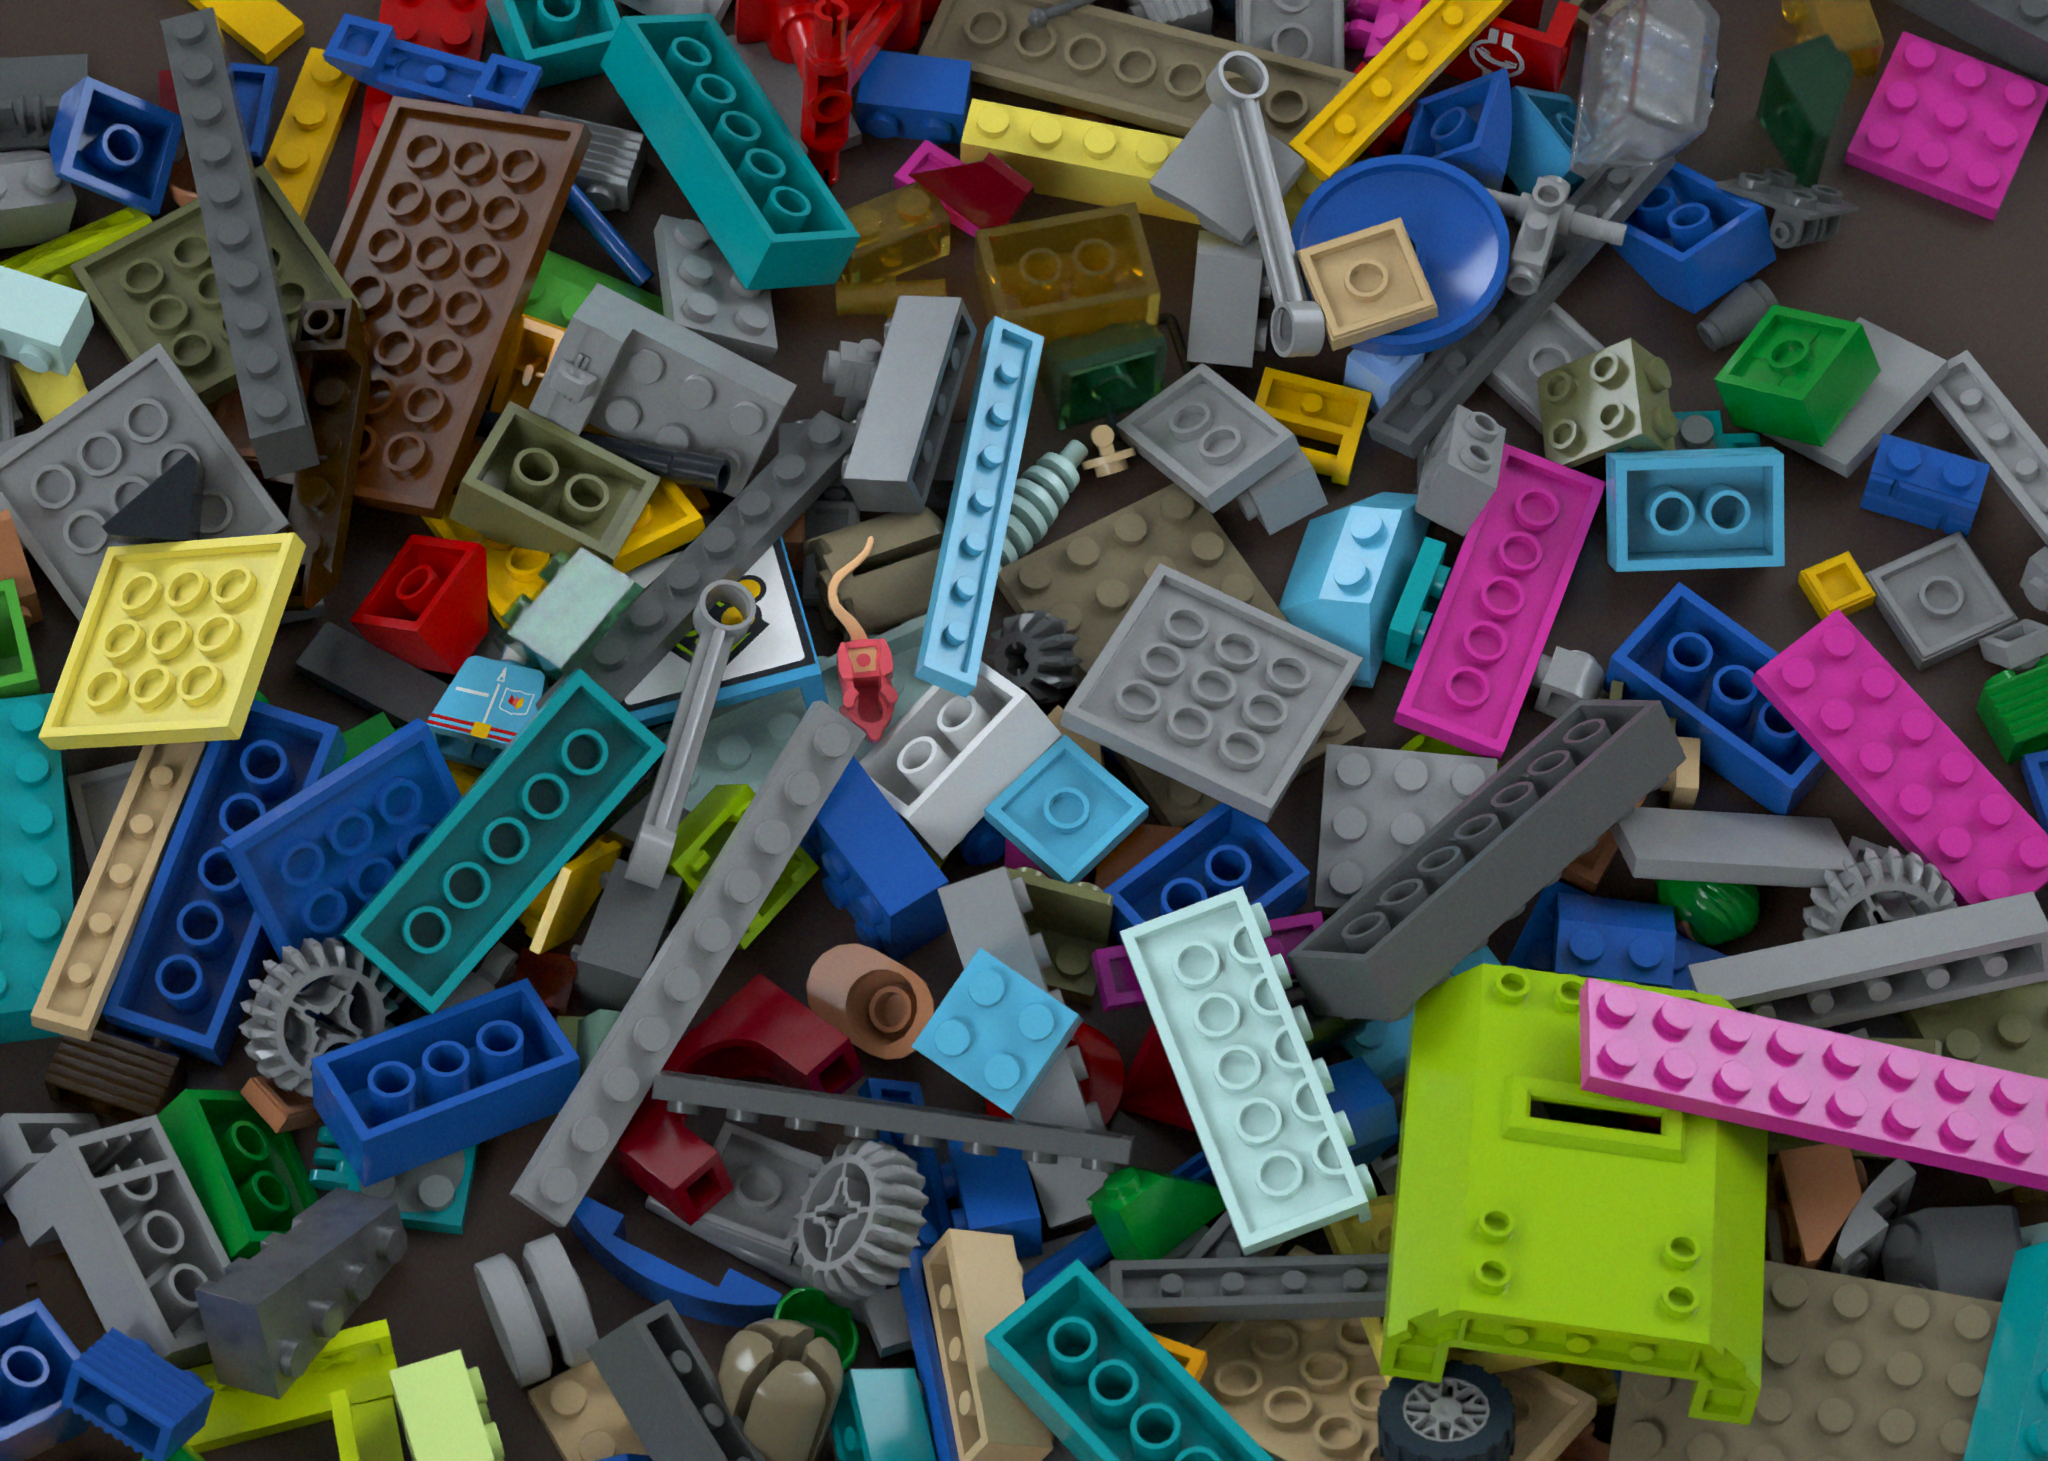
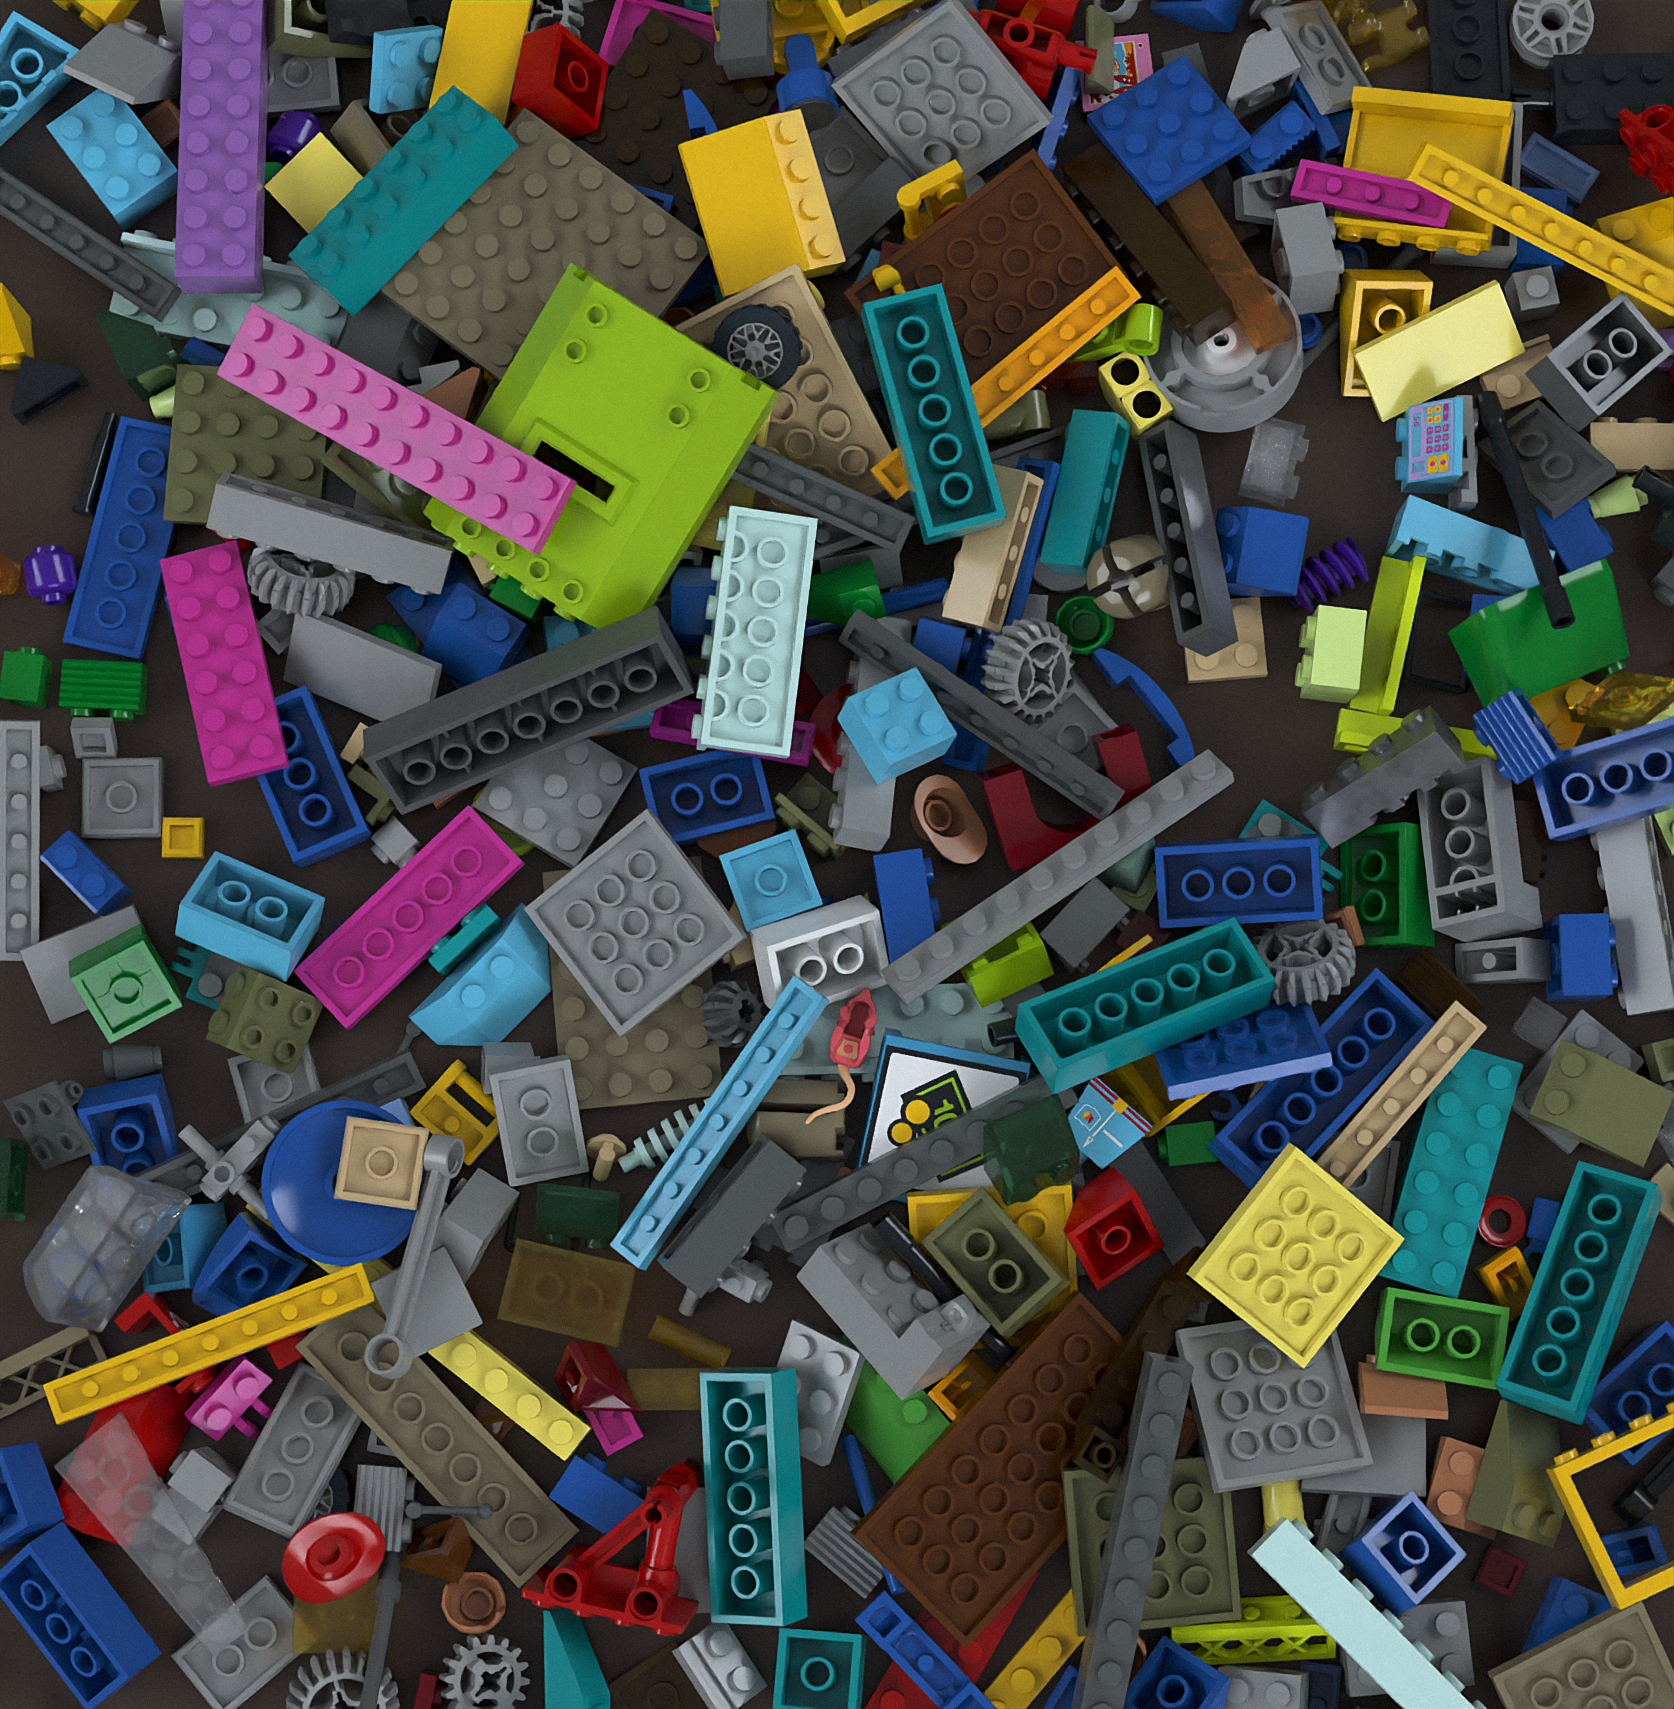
camera: 150 degrees left, 20 degrees up
(165, 510) = (1262, 1365): black slope -> none
(545, 1307) = (1251, 707): light grey wheel -> none
(666, 802) = (1050, 956): light grey piece -> none
(1460, 469) = (386, 1016): light grey brick -> none

